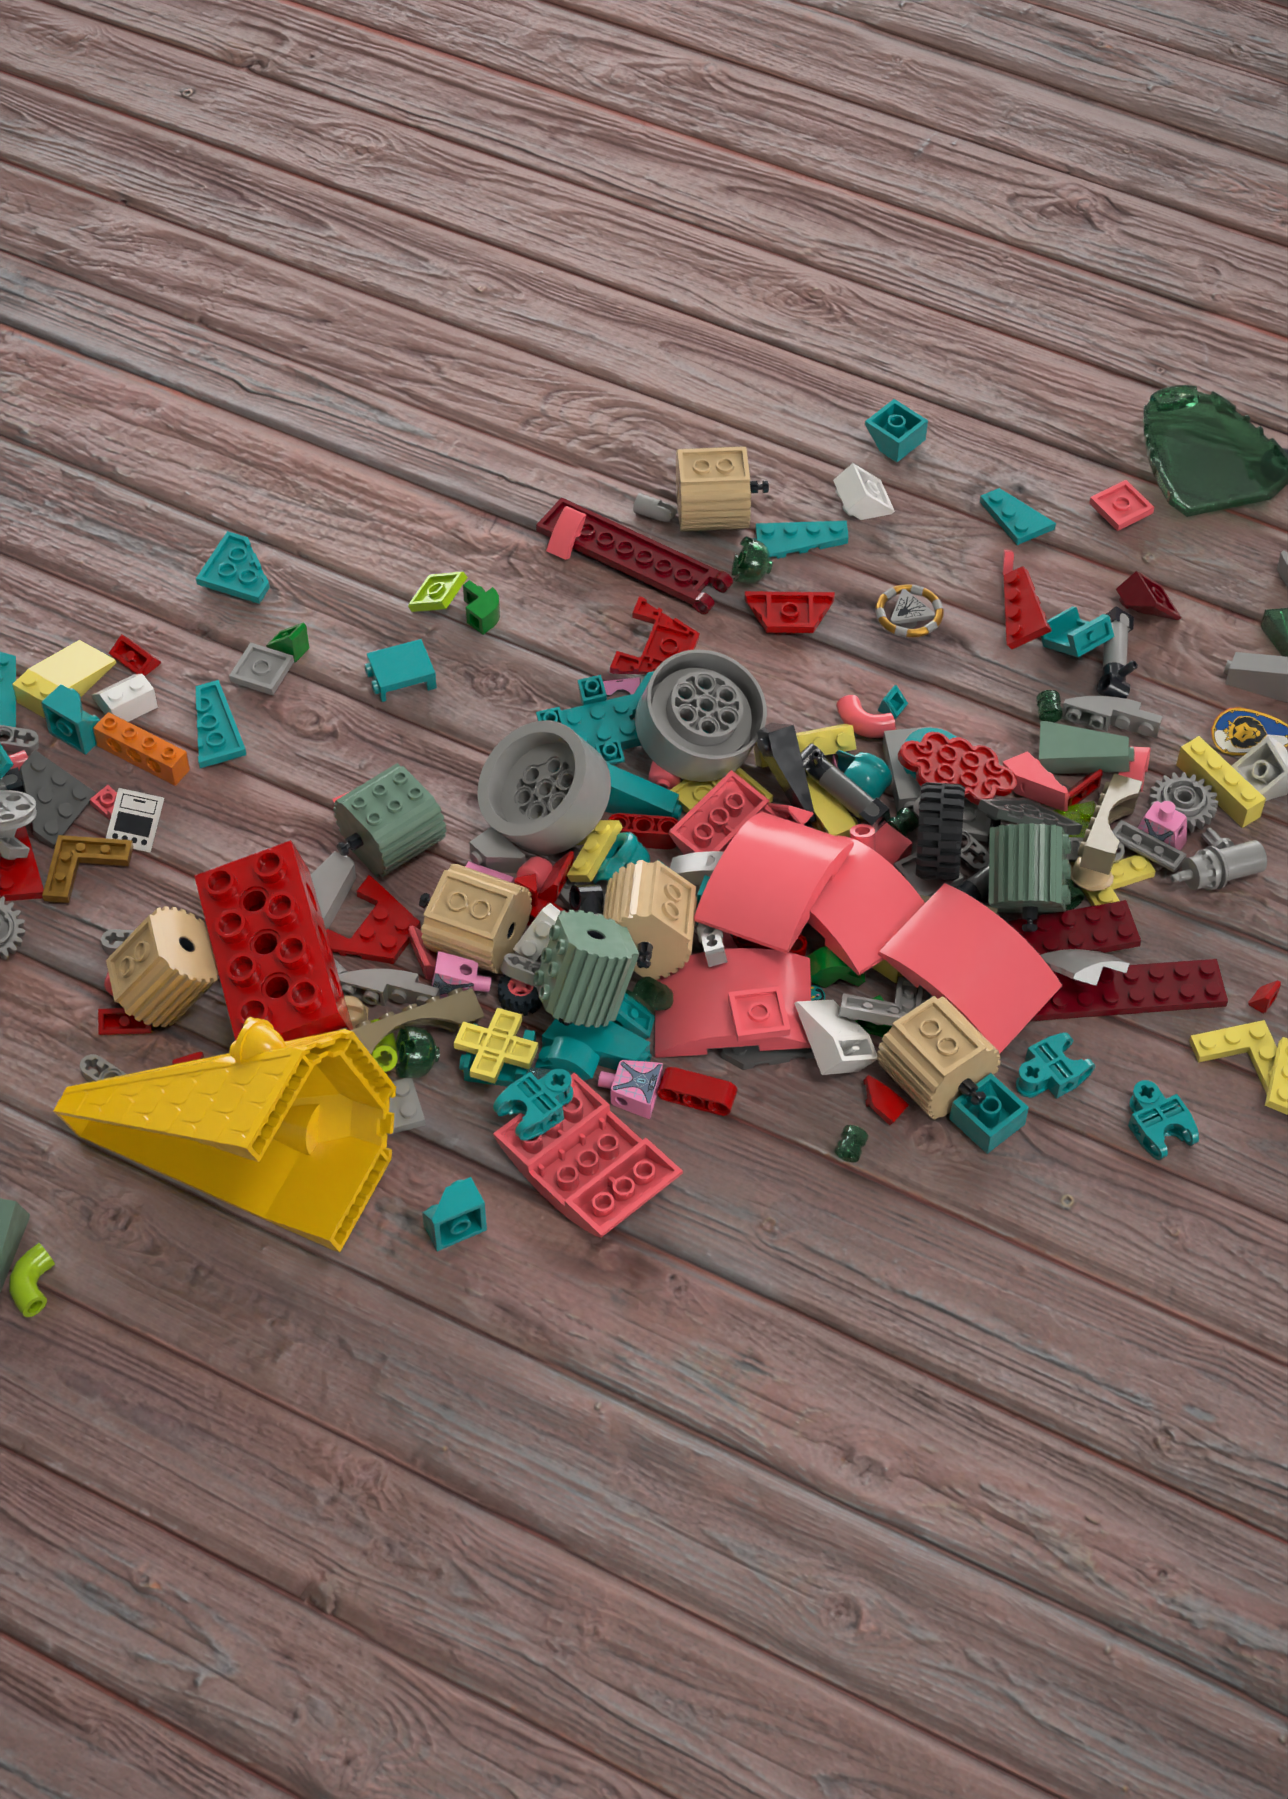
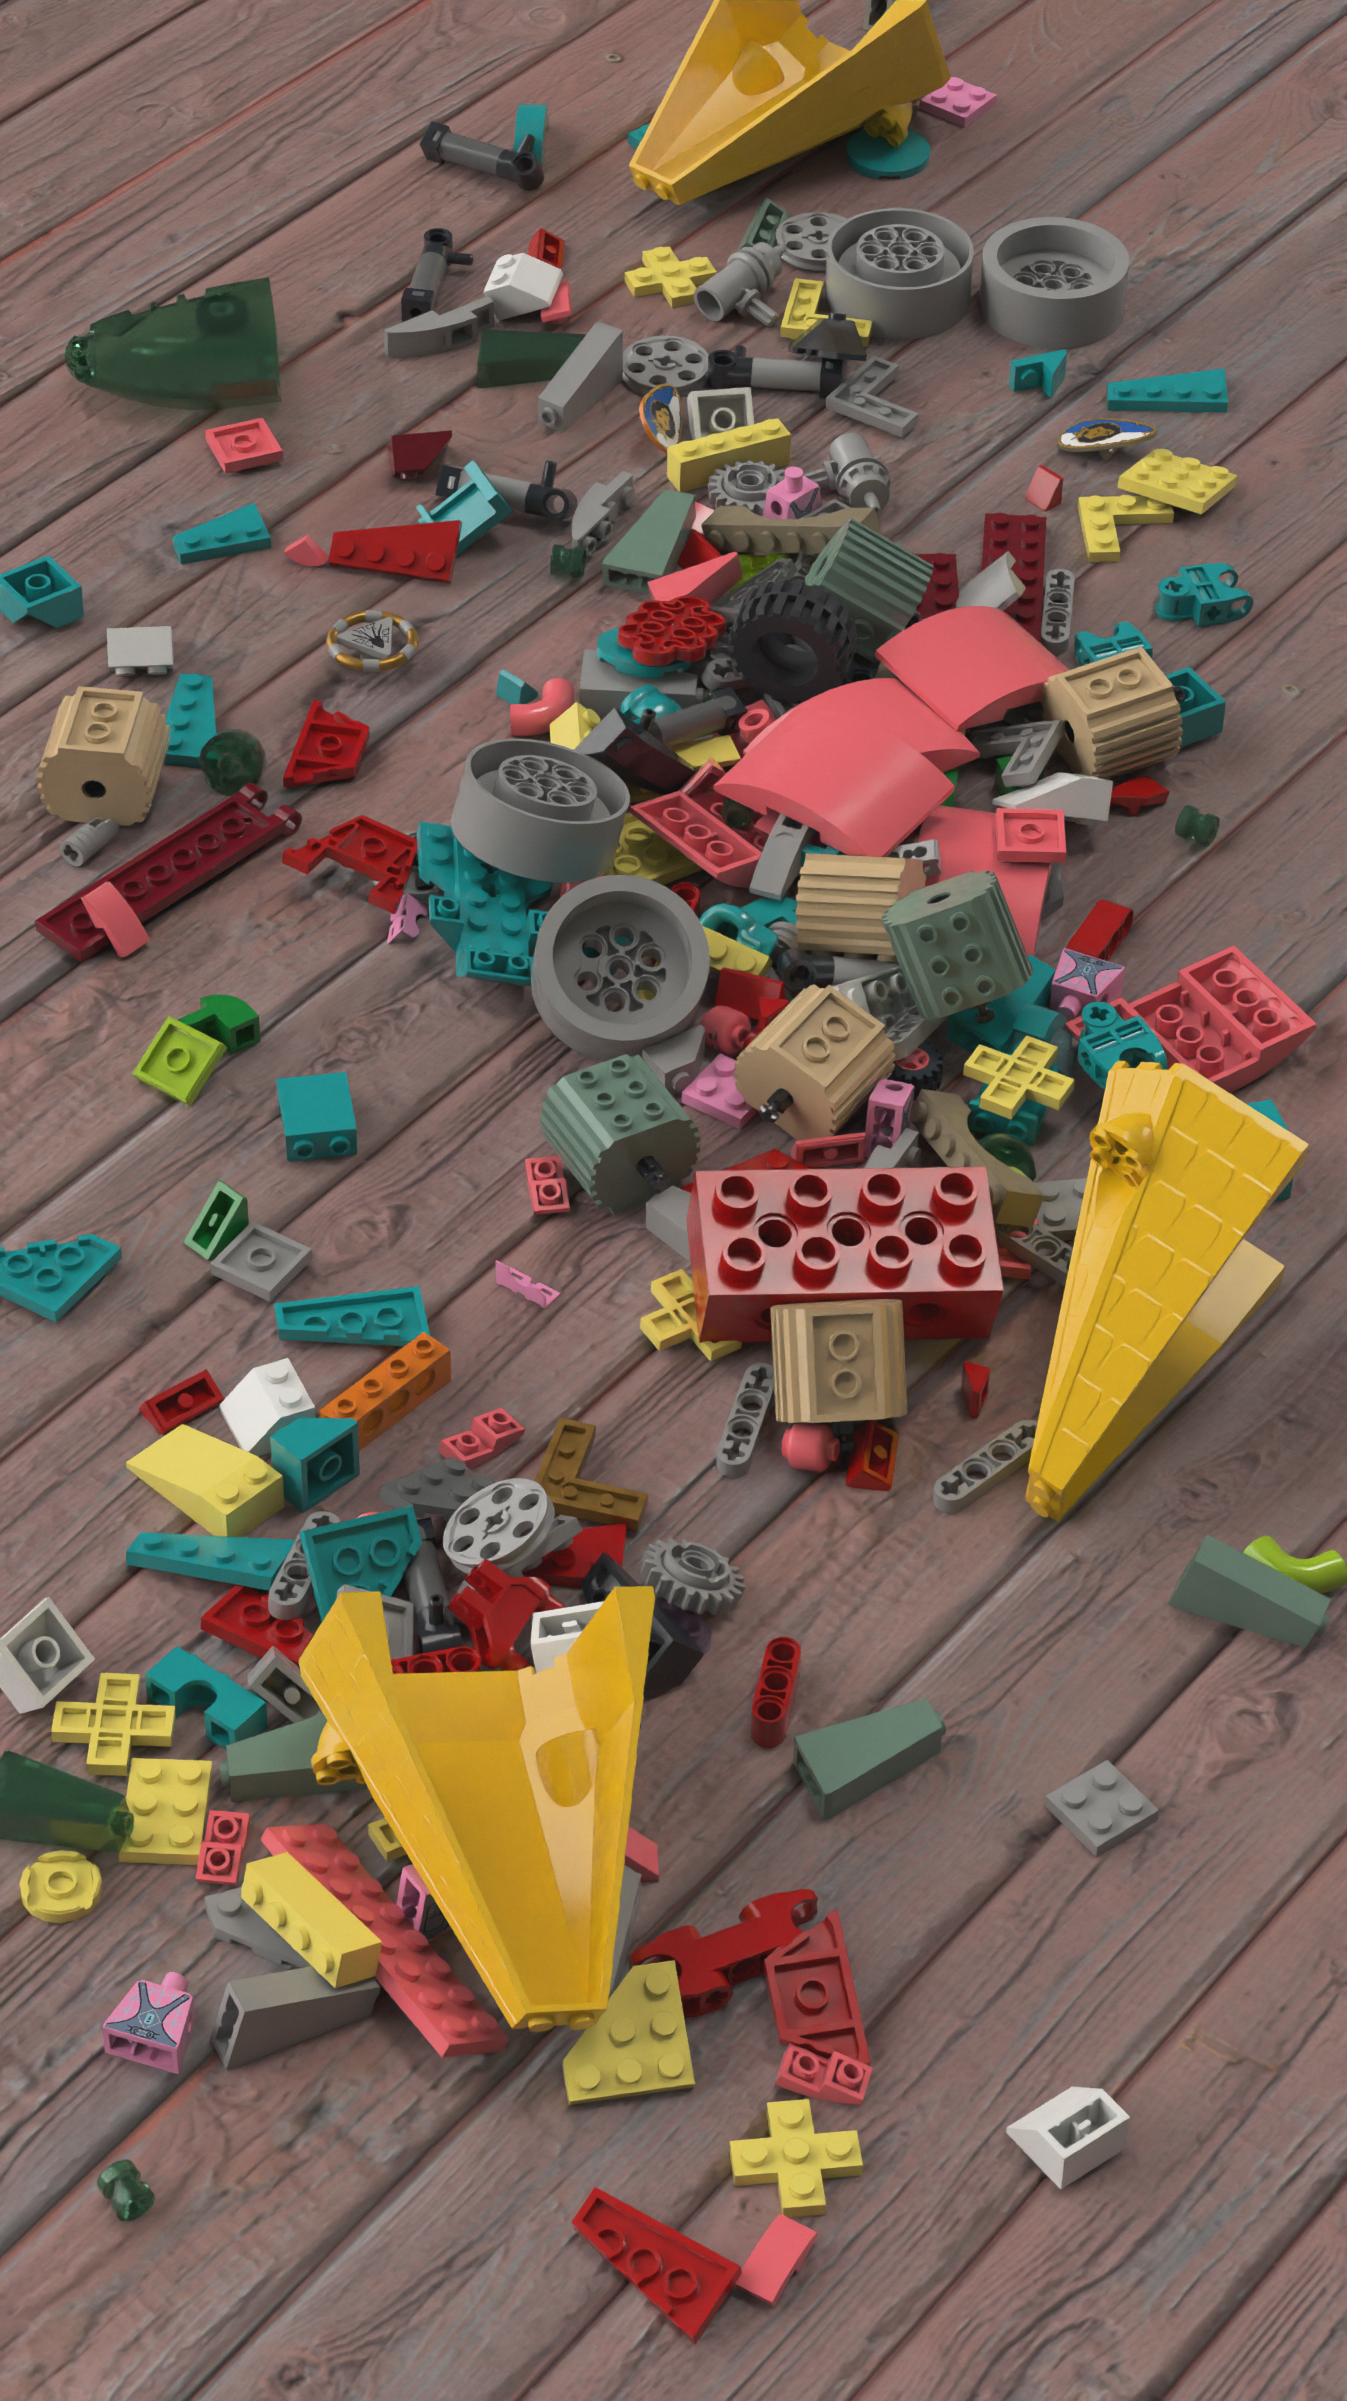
camera: 80 degrees left, 10 degrees down
(135, 818) = (520, 1410): white sticker -> none
(268, 810) = (524, 1286): none -> bright pink piece
(1107, 1027) = (1057, 611): none -> light grey beam

